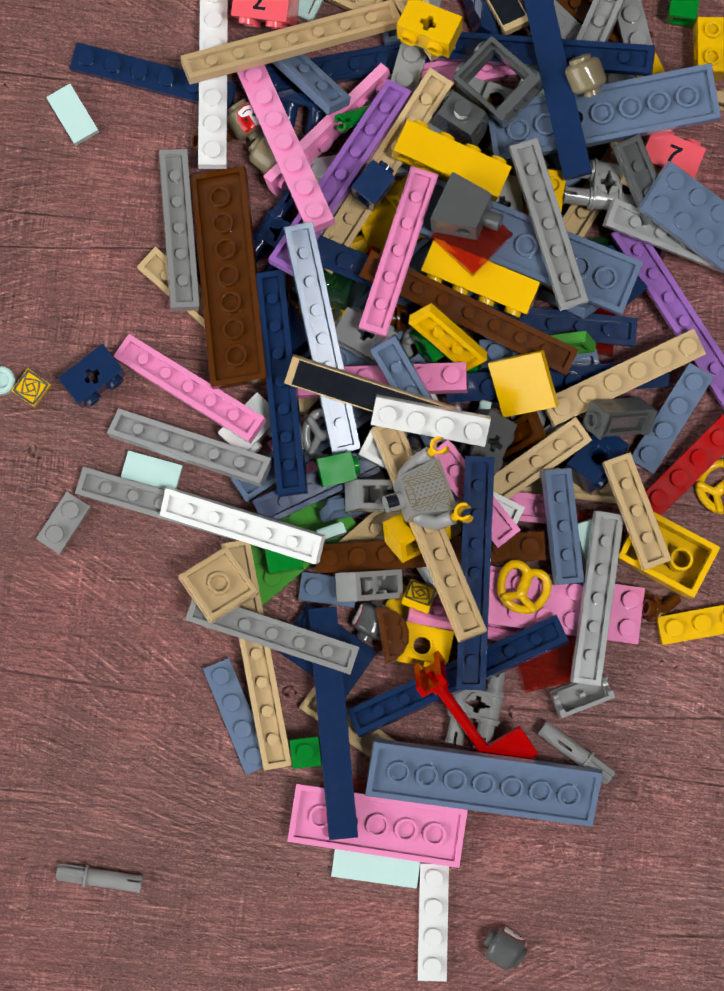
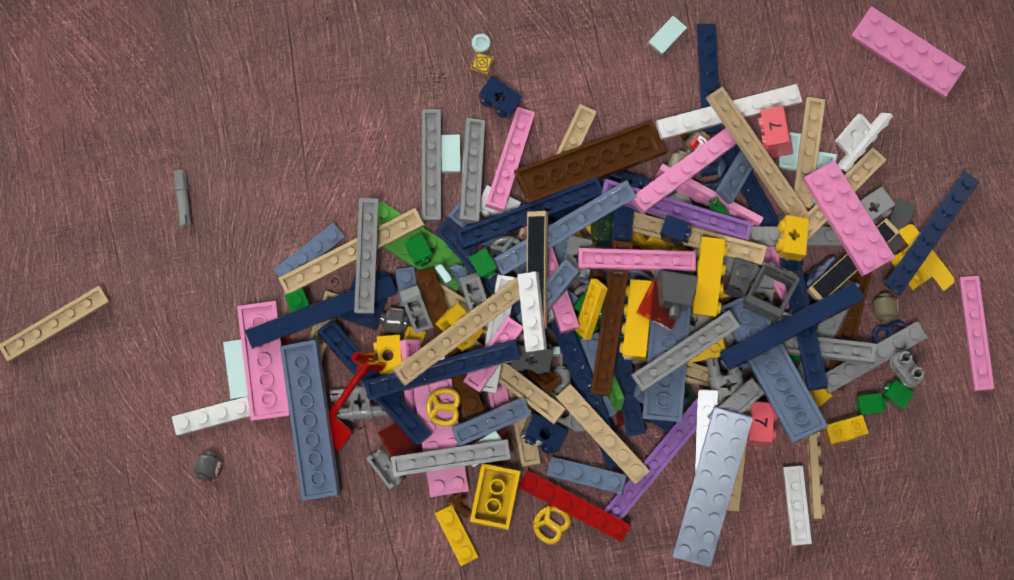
camera: 70 degrees right, 5 degrees down
(63, 523) = (401, 109): light grey plate -> none
(178, 230) = (611, 122): light grey plate -> none
(218, 585) = (387, 212): tan tile -> none
(242, 525) = (430, 216): white plate -> none
(393, 633) = (389, 333): reddish brown tile -> none
(419, 596) = (417, 341): yellow tile -> none
(424, 491) = (483, 319): light grey torso -> none
(523, 383) = (576, 367): yellow tile -> none
(576, 753) = (347, 476): light grey axle -> none
(585, 75) = (792, 346): dark tan head -> none
(619, 417) = (575, 438): dark grey window -> none
(636, 511) = (514, 465): tan plate -> none

